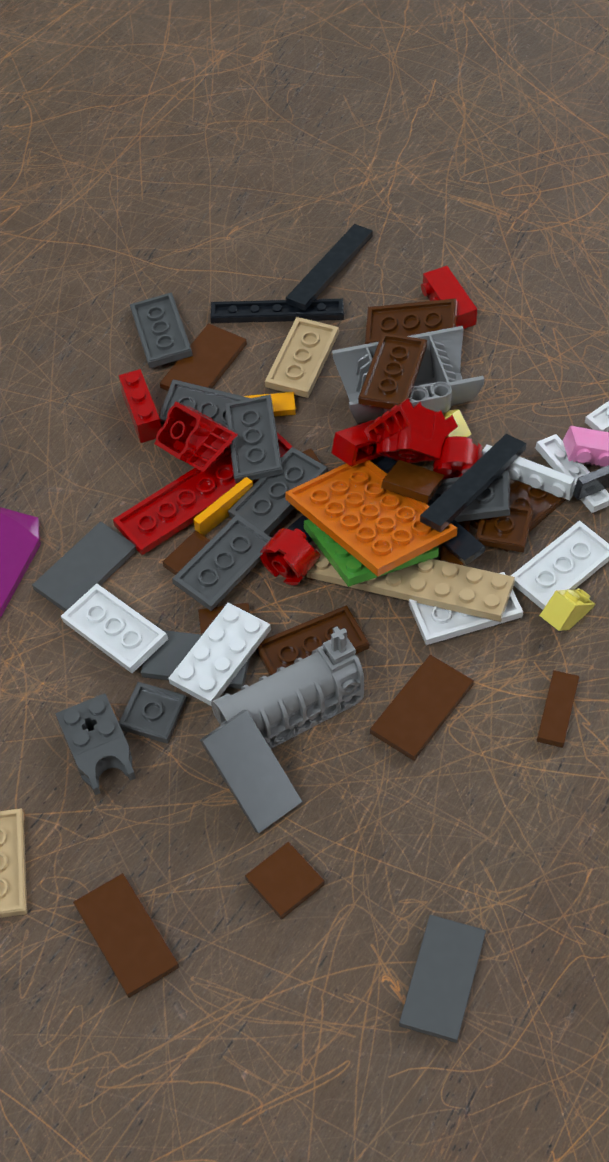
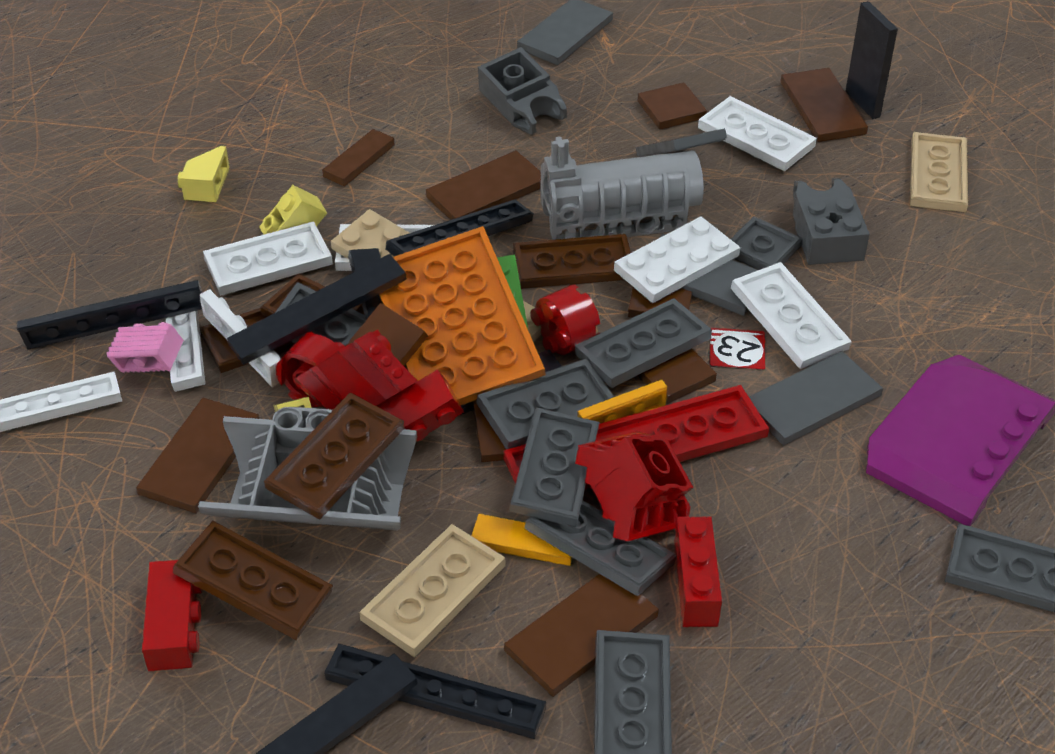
camera: 165 degrees left, 10 degrees down
(74, 936) = (871, 59): none -> black tile
(154, 600) = (737, 348): none -> sticker
(186, 856) = (758, 133): none -> white plate
(412, 623) = (493, 219): none -> black tile
(442, 830) = (520, 89): none -> dark grey brick
(504, 401) = (193, 458): none -> reddish brown tile

